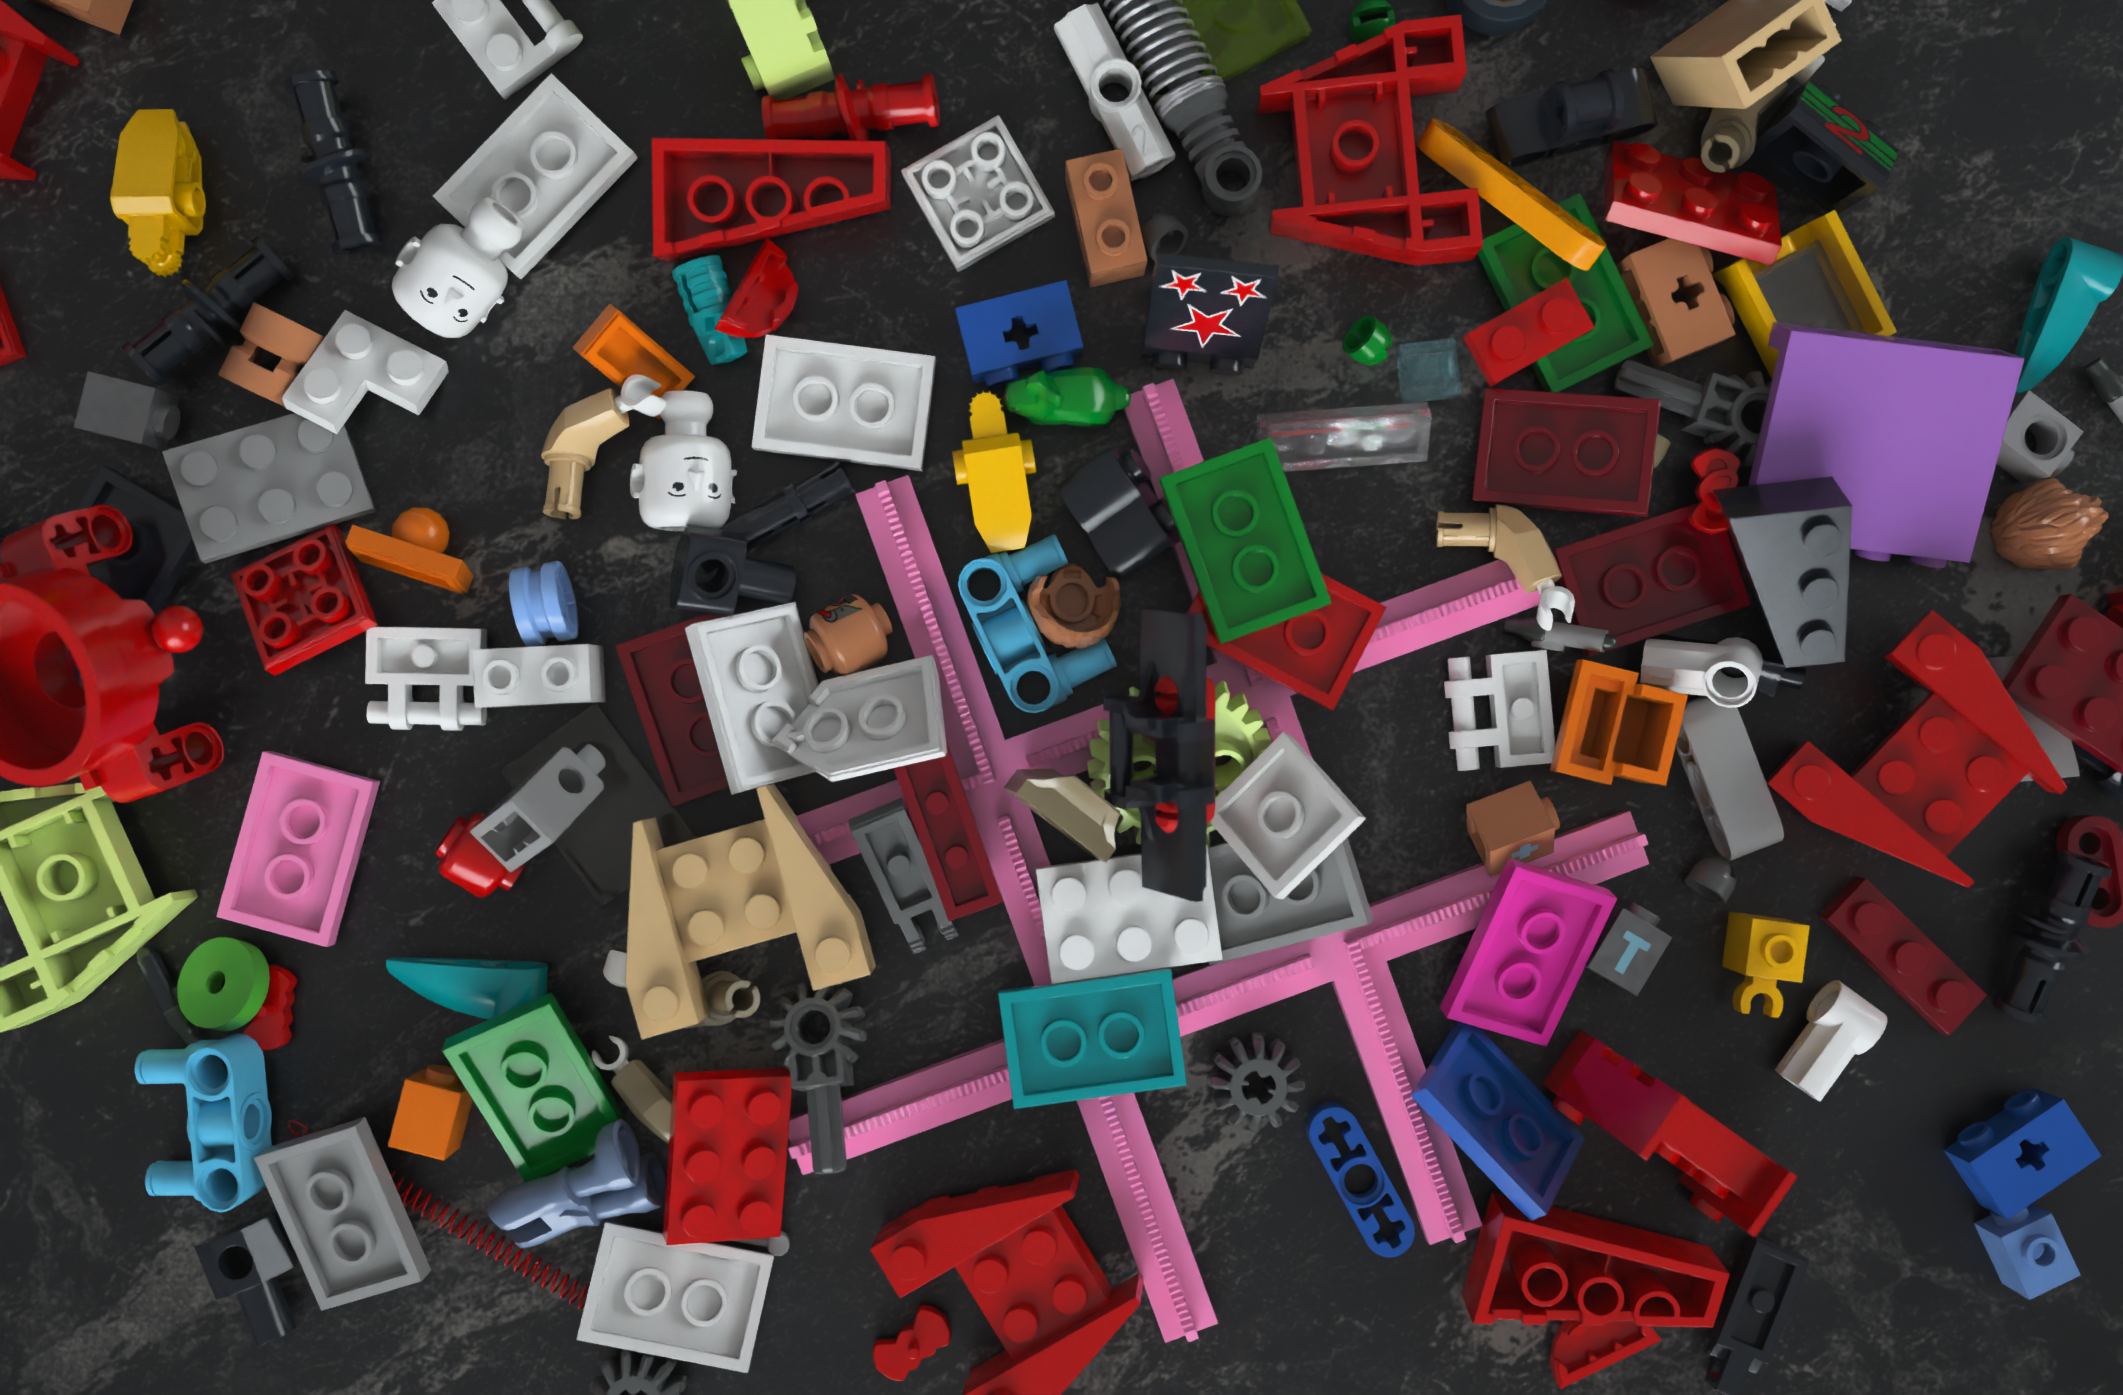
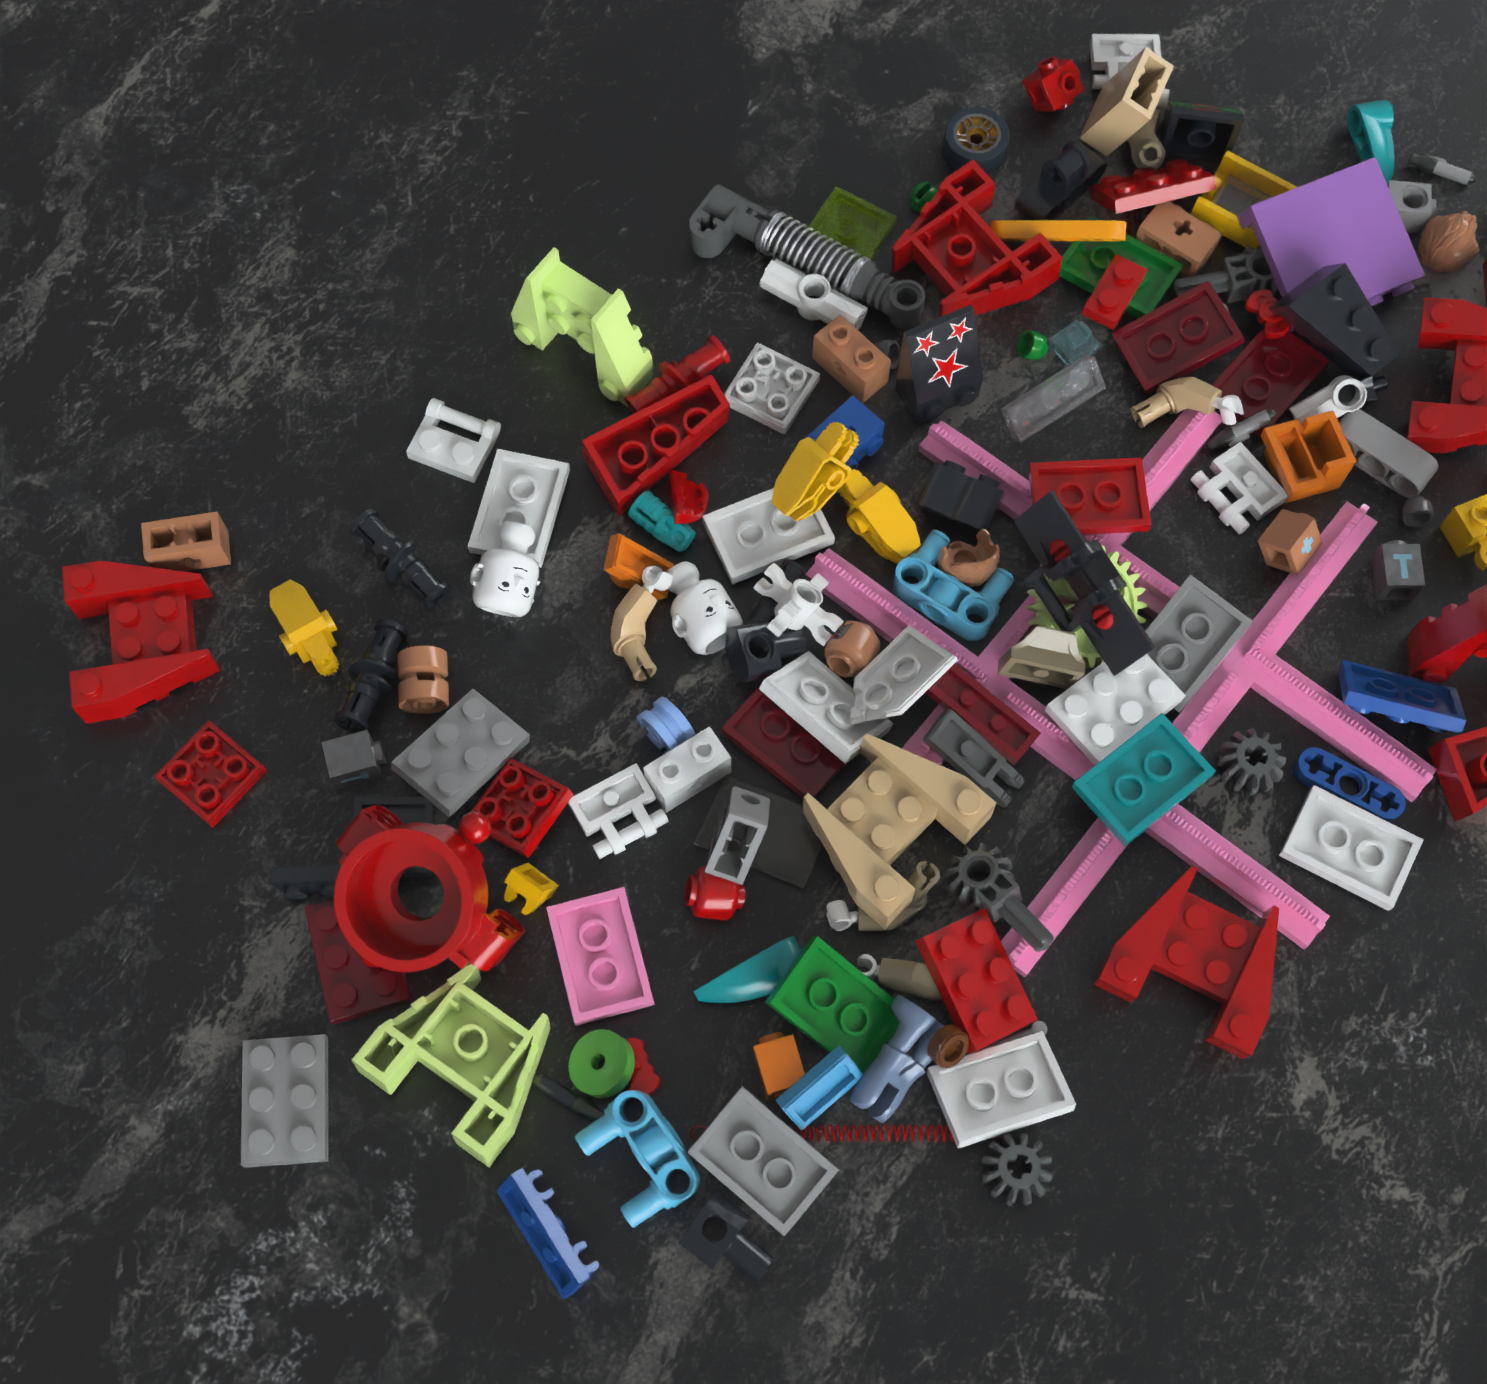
camera: 30 degrees left, 20 degrees down
(50, 1142) = (545, 1232): none -> blue plate
(261, 709) = (531, 885): none -> yellow tile
(360, 359) = (475, 656): white plate -> none
(413, 550) = (569, 744): orange tile -> none
(455, 1175) = (819, 1088): none -> dark azure tile
(636, 1220) = (948, 1046): none -> reddish brown tile
(786, 543) = (798, 604): none -> white pin
(914, 1342) = (1159, 1041): red piece -> none
(933, 372) = (814, 472): none -> yellow hinge
(1069, 396) = (891, 456): green animal -> none
(1244, 540) = (1043, 458): green plate -> none
(1284, 815) = (1167, 589): white plate -> none
(1303, 1258) = (1351, 848): none -> white plate
(1527, 952) = (1349, 599): dark pink plate -> none

